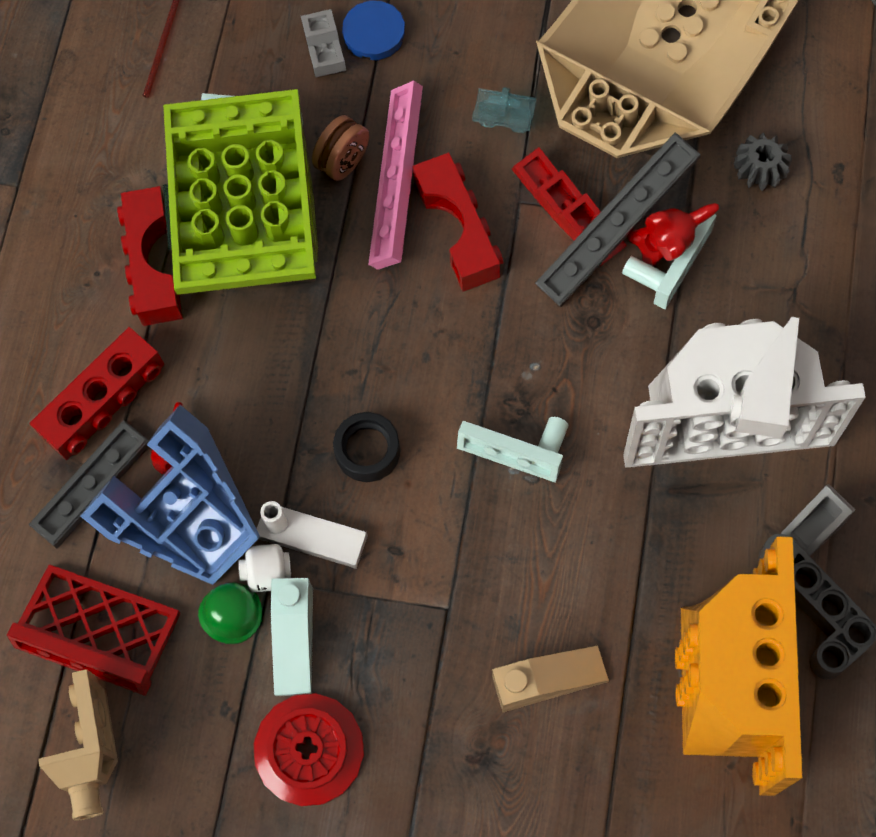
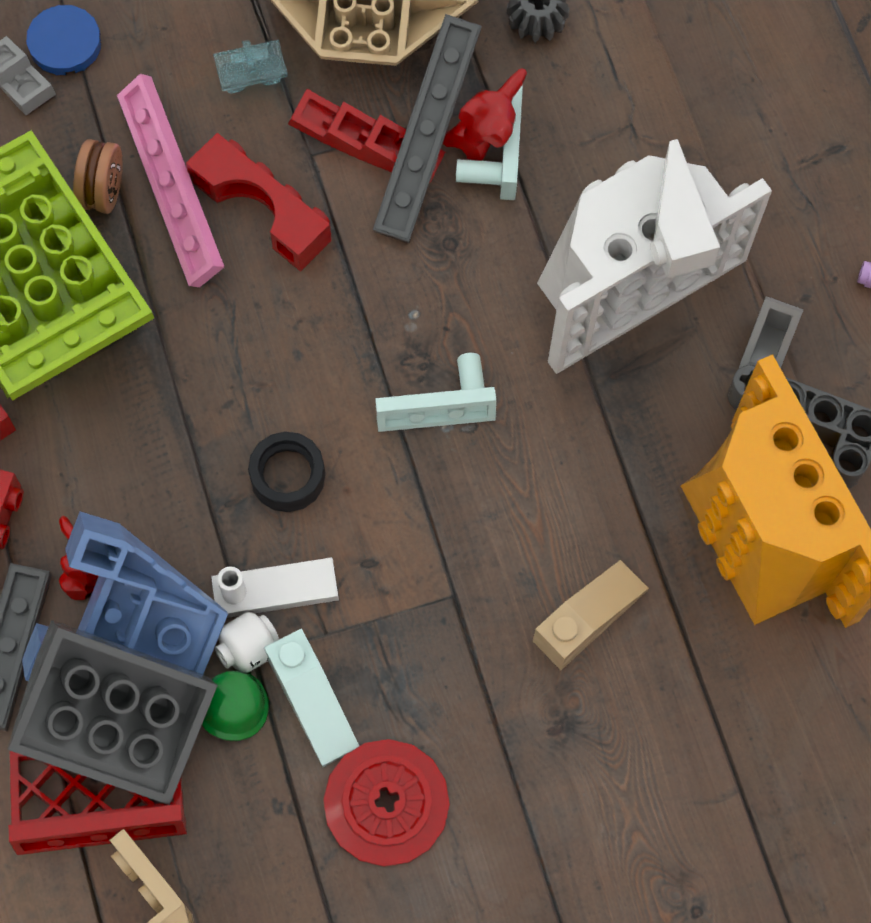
camera: 35 degrees left, 0 degrees up
(128, 573) = (110, 712): none -> dark grey slope

